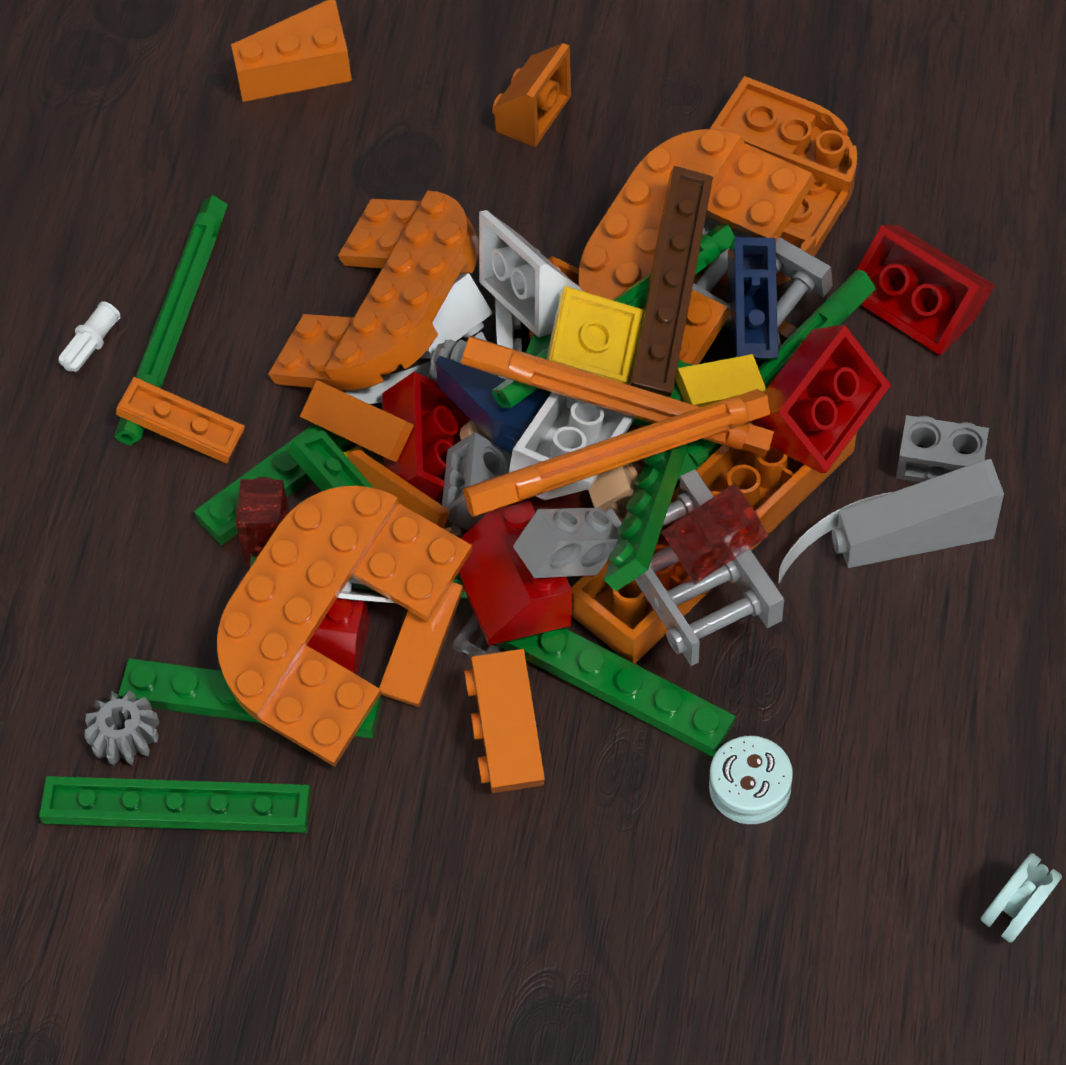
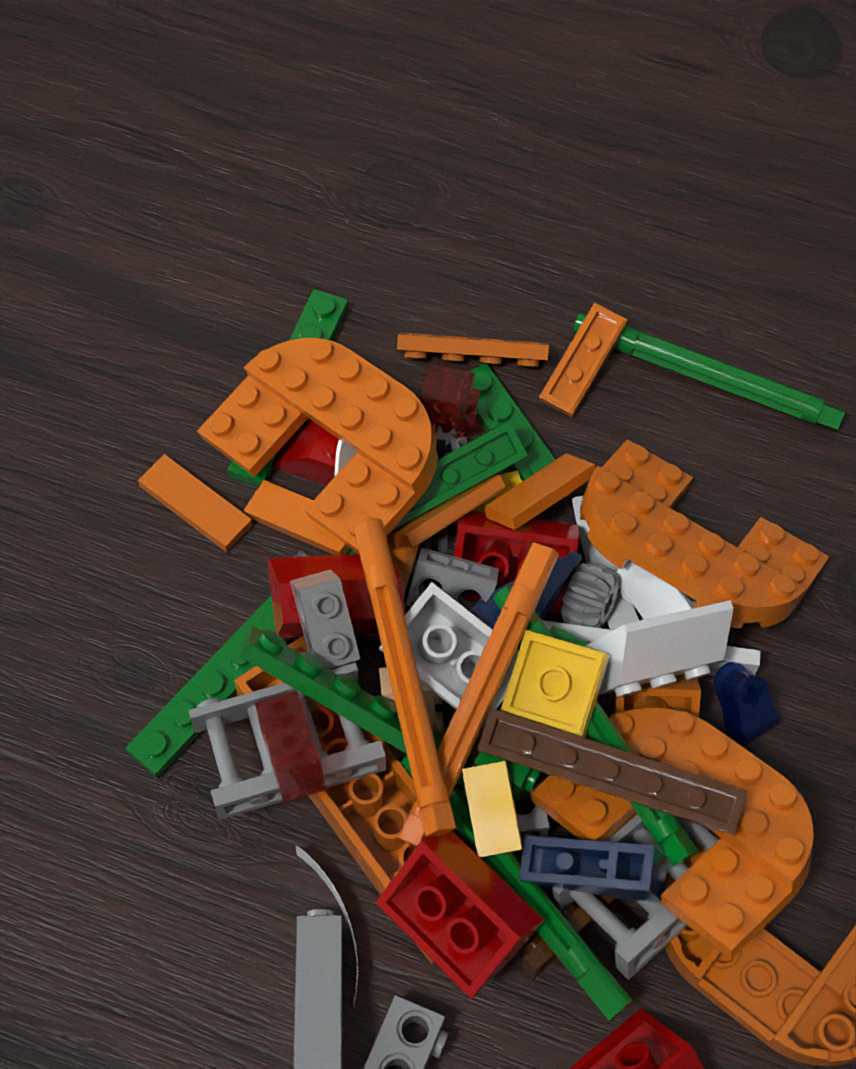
camera: 95 degrees right, 5 degrees up
(89, 337) = (695, 303): white axle -> none
(109, 717) = (279, 286): light grey gear -> none
(176, 525) = (456, 348): none -> orange plate
(176, 804) = (198, 322): green plate -> none
(414, 758) = (195, 503): none -> orange tile
(505, 721) = (198, 568): orange wedge -> none
(550, 236) = (744, 703): none -> clear blue piece
(750, 779) = (85, 772): light aqua head -> none

